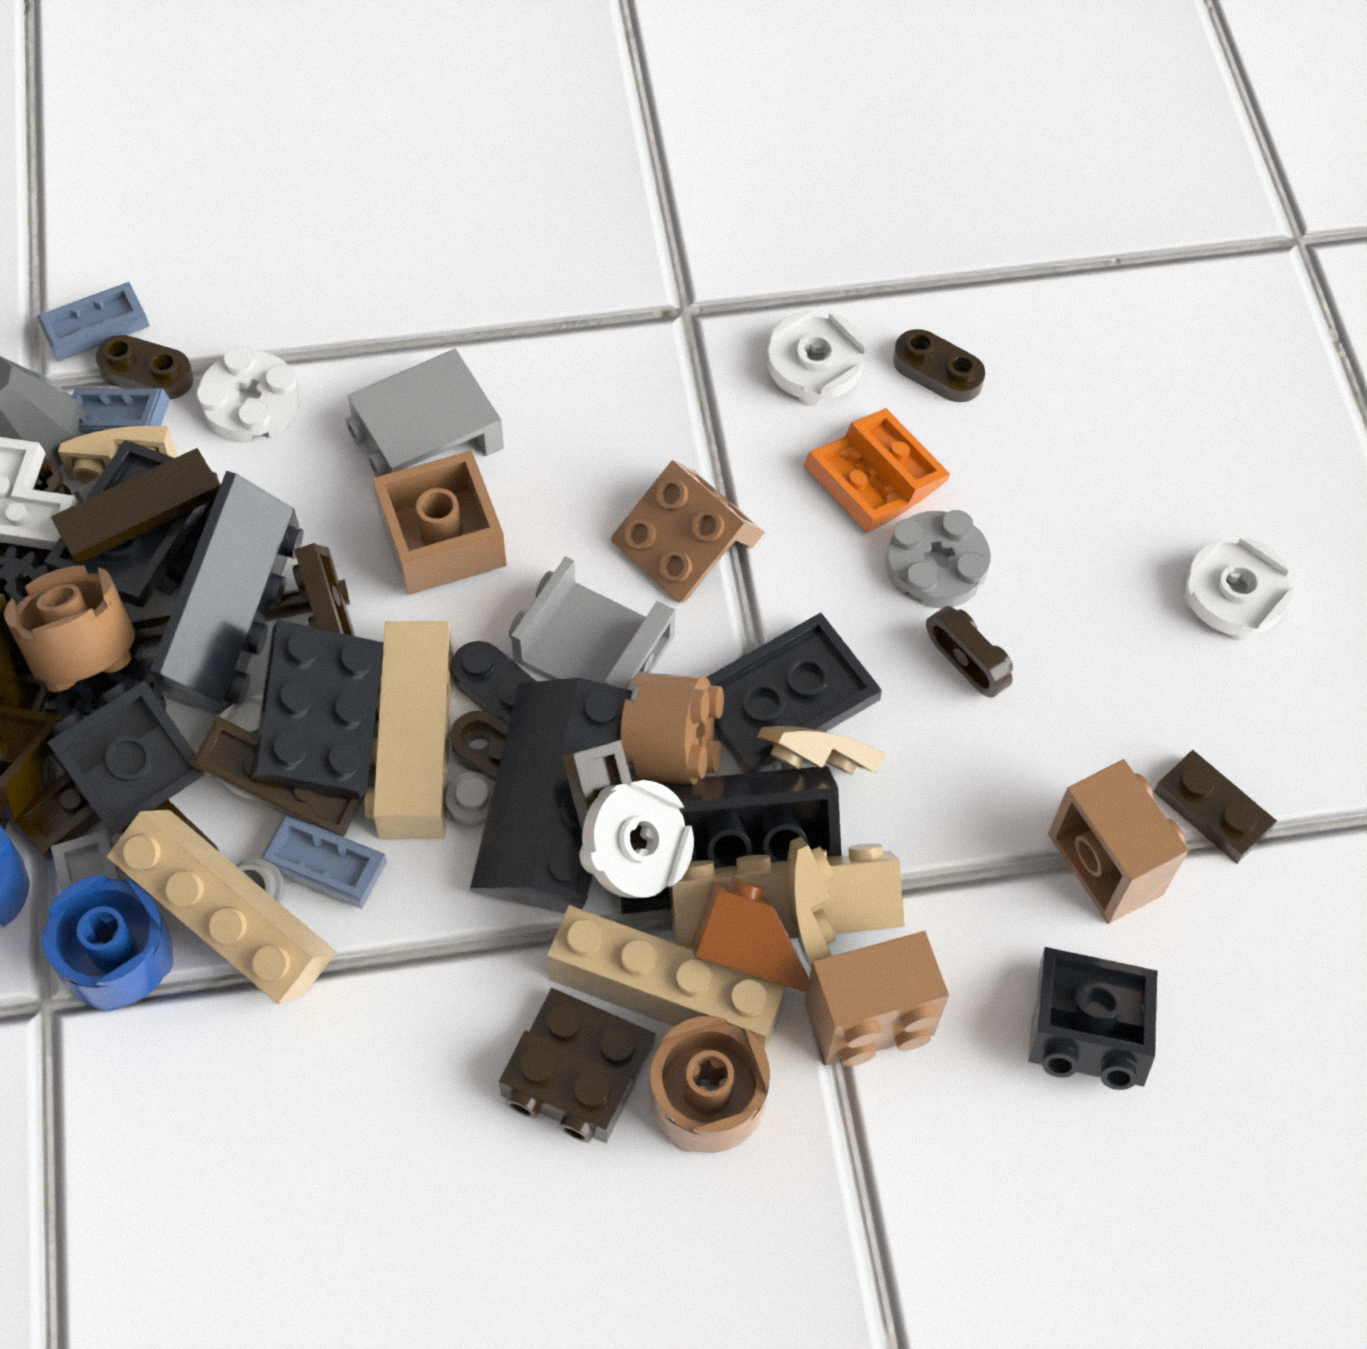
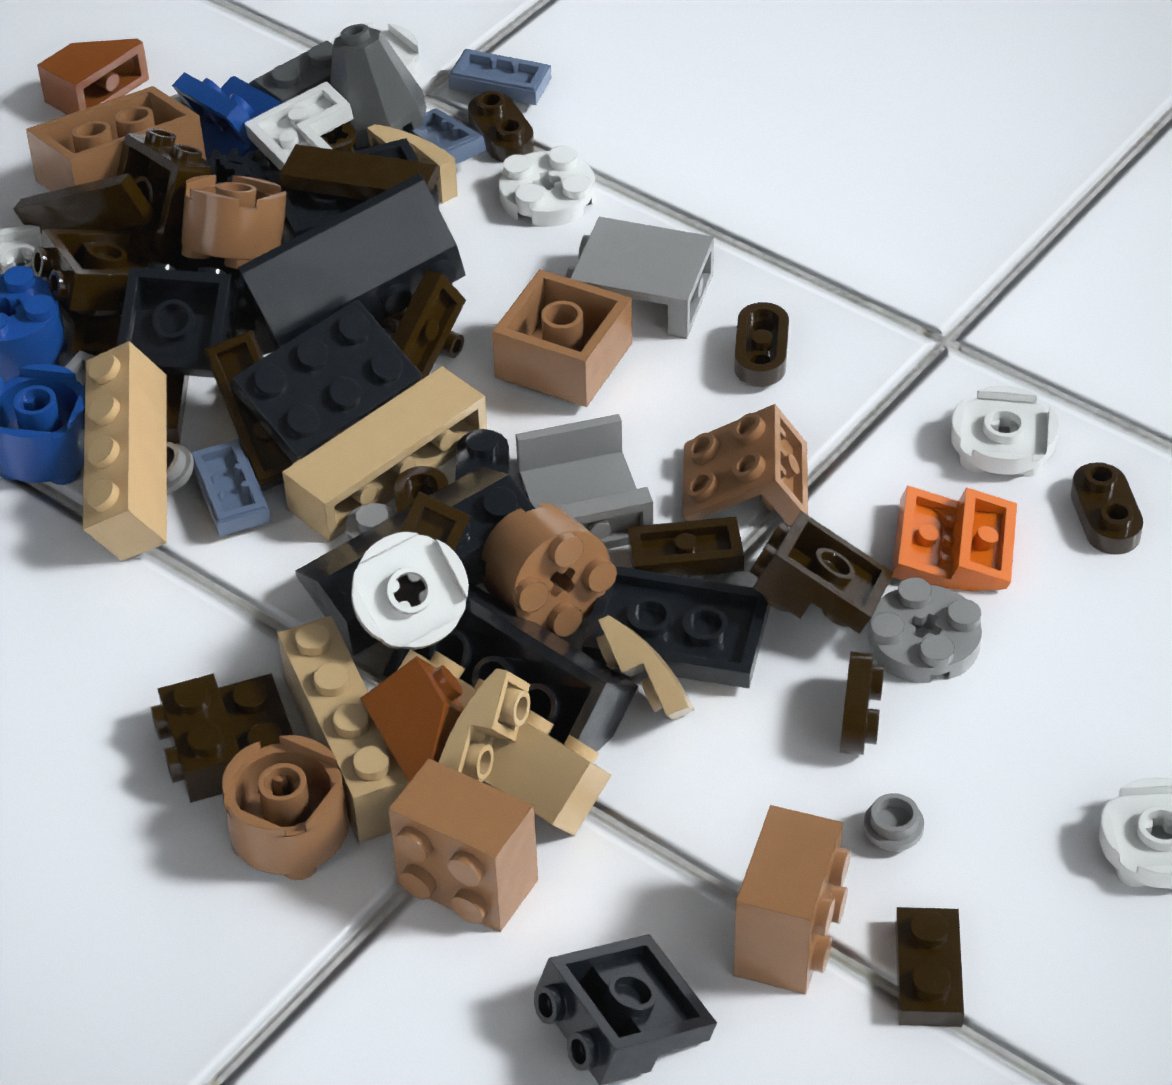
camera: 50 degrees right, 15 degrees down
(580, 414) = (761, 344): none -> dark brown plate
(719, 626) = (687, 547): none -> dark brown plate
(845, 573) = (819, 568): none -> dark brown plate
(1084, 721) = (894, 822): none -> light grey plate

